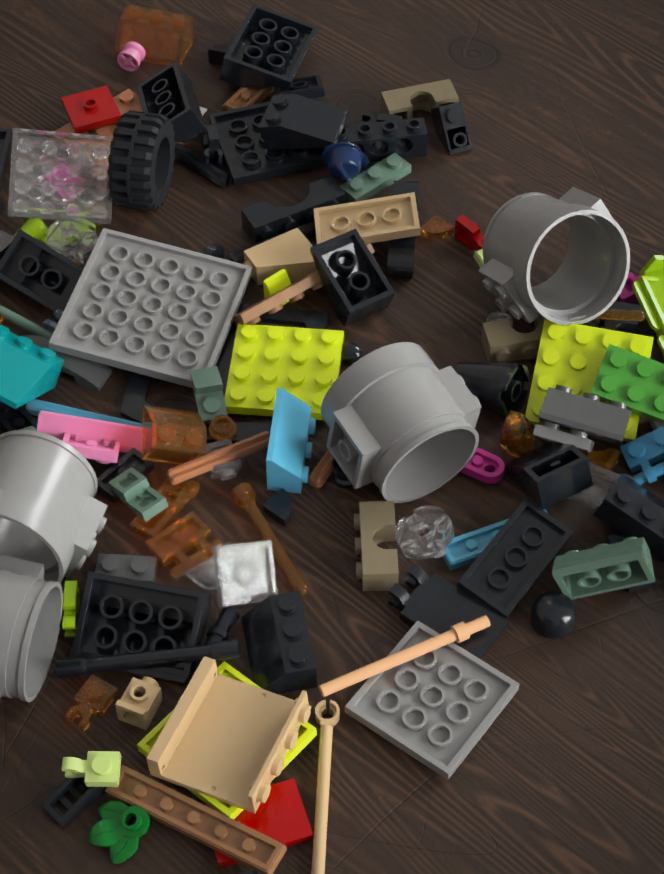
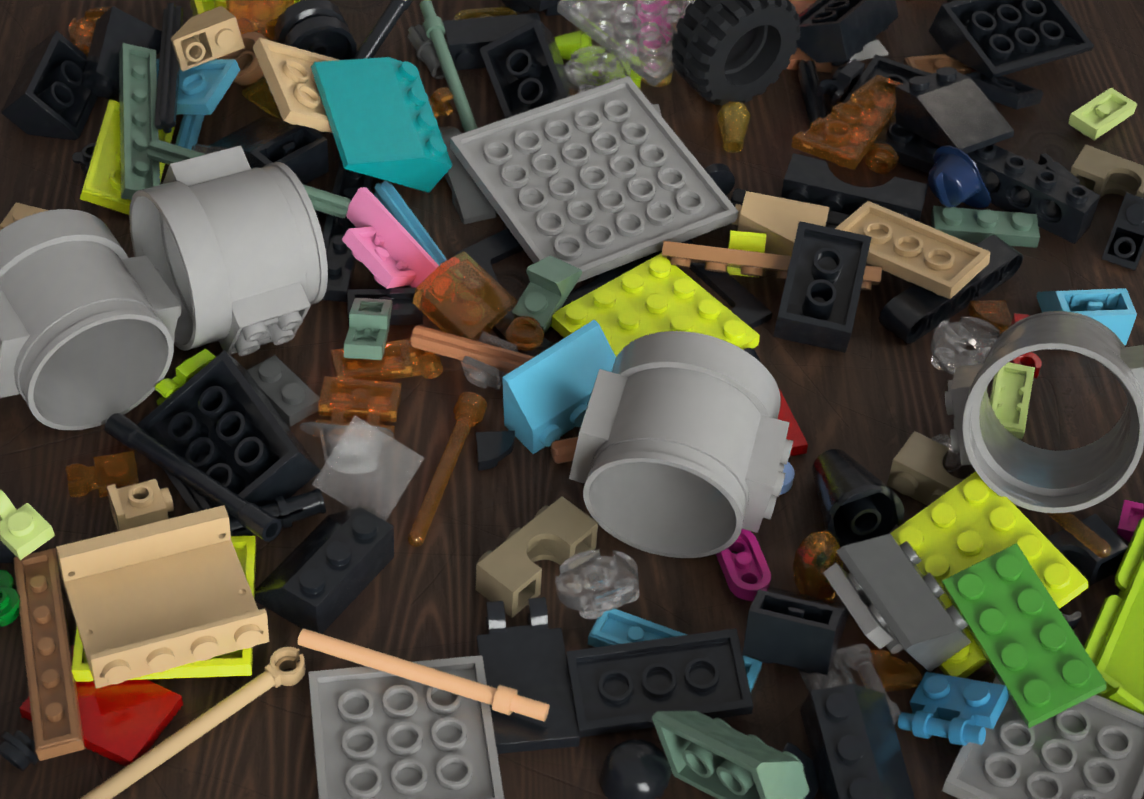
camera: 40 degrees right, 5 degrees down
(180, 215) = (733, 124): none -> clear yellow cone
(252, 167) = (852, 125): none -> clear orange wing
(282, 177) = (881, 158): none -> clear orange plate
(361, 66) = (1102, 113): none -> yellowish green plate
(440, 267) = (951, 340): none -> clear plate
(484, 192) = (1107, 306): none -> medium azure slope

